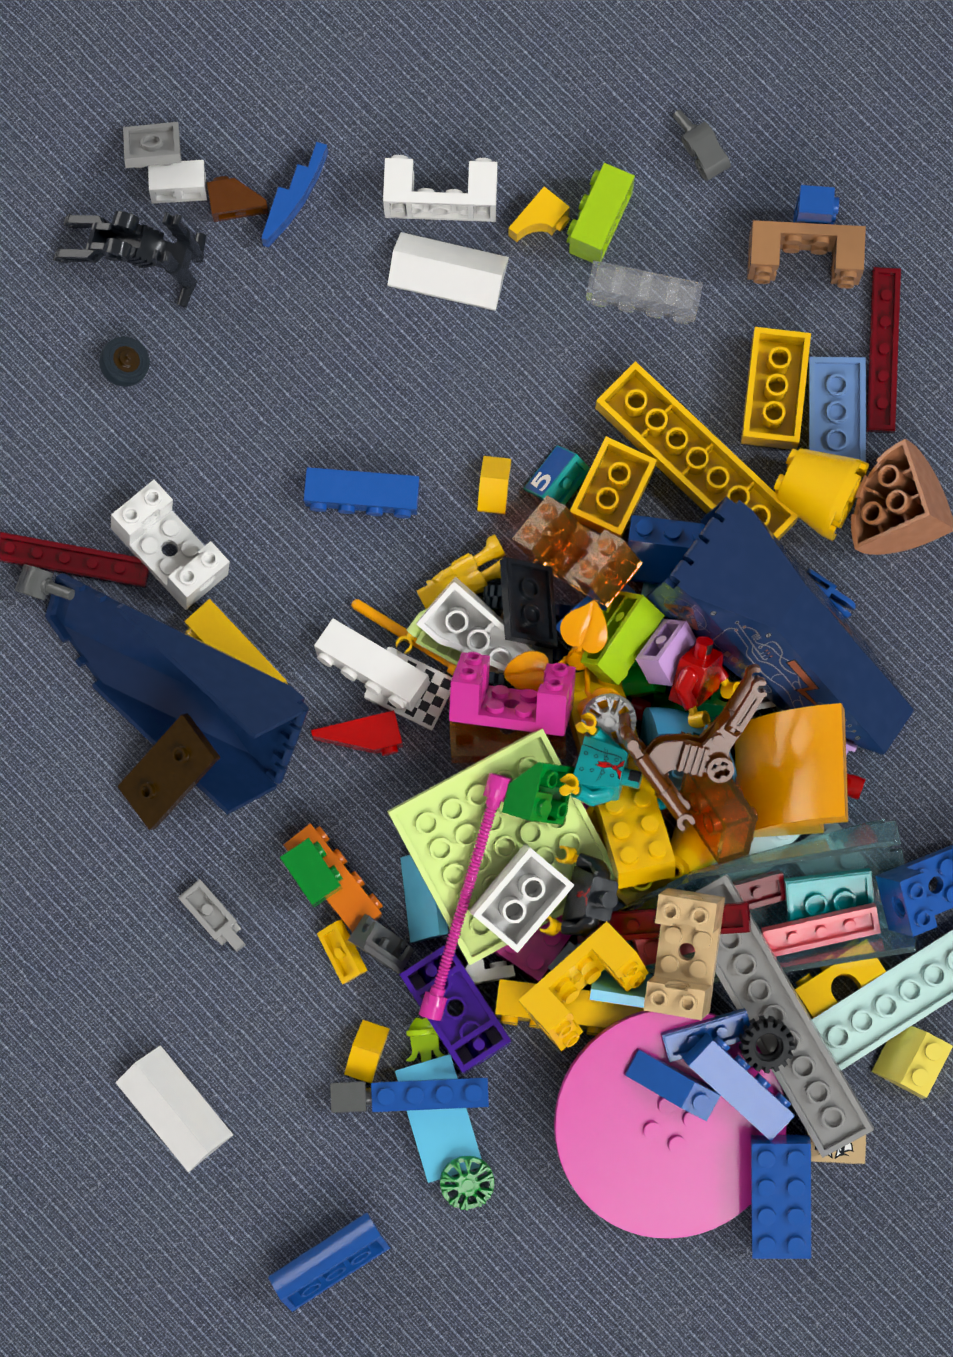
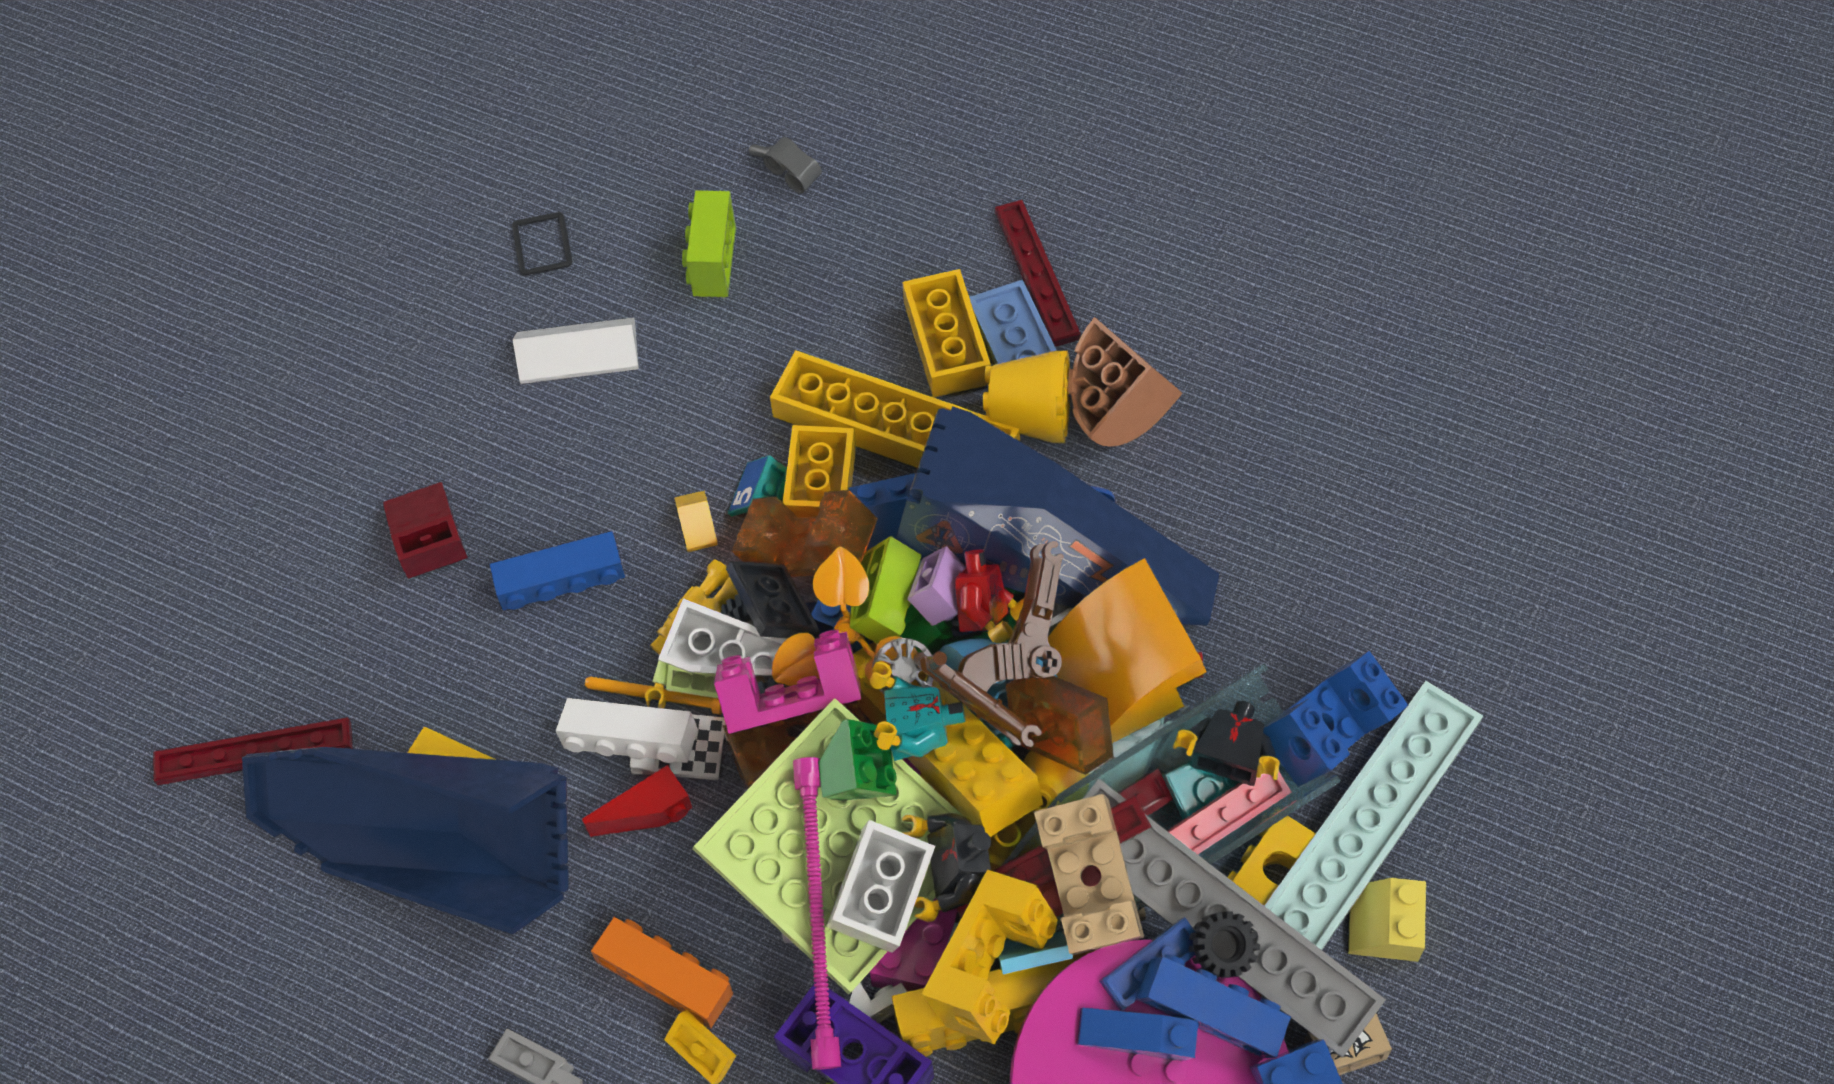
camera: 20 degrees left, 20 degrees down
(39, 583) = (223, 776): dark grey beam -> none
(124, 361) = (262, 537): black wheel -> none
(139, 244) = (245, 415): black piece -> none
(148, 524) = (333, 682): white plate -> none
(151, 145) = (225, 339): light grey plate -> none
(168, 771) = (431, 917): dark brown plate -> none
(177, 182) = (272, 361): white hinge -> none
(234, 200) = (337, 357): reddish brown slope -> none
(261, 405) = (424, 530): none -> dark red slope
(289, 202) = (395, 338): blue slope -> none
(311, 872) = (633, 964): green brick -> none
(381, 944) = (740, 1019): dark grey hinge -> none
(404, 203) = (522, 294): white plate -> none
(422, 911) = (774, 956): medium azure tile -> none
(430, 137) = (515, 224): none -> black piece
(542, 214) = (653, 268): yellow arch -> none
(643, 291) = (780, 298): clear brick -> none
(816, 205) = (918, 168): blue brick -> none
(844, 242) = (943, 190): medium nougat plate -> none
(846, 883) = (1231, 745): none -> black torso

